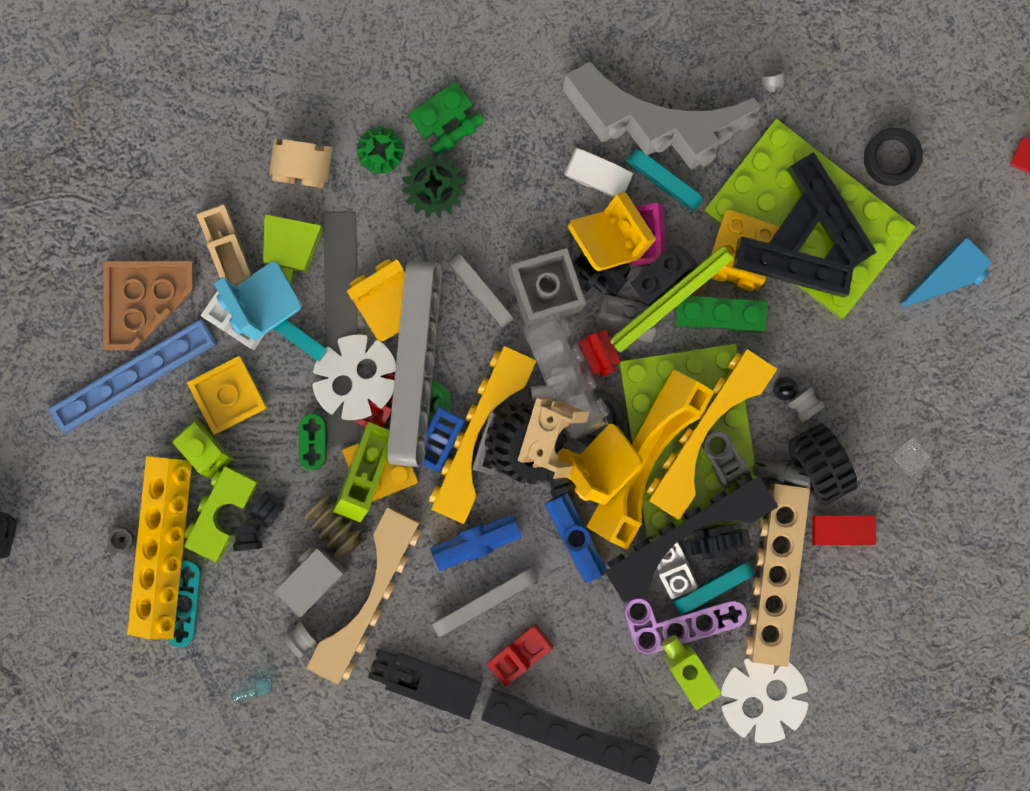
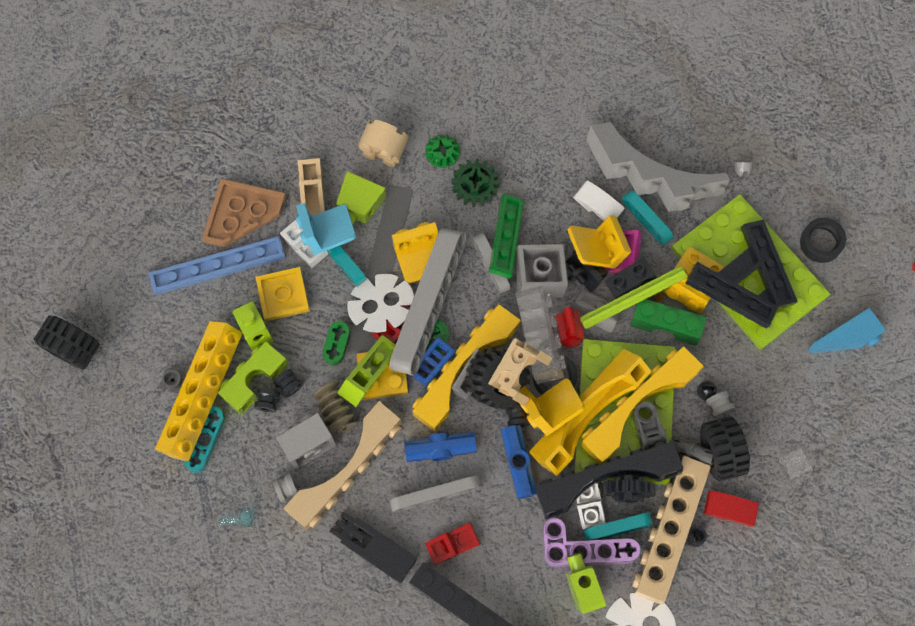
camera: 20 degrees right, 15 degrees down
(442, 110) = (495, 134): green plate -> none
(491, 250) = (506, 236): none -> green tile
(814, 574) = (699, 534): none -> black hinge

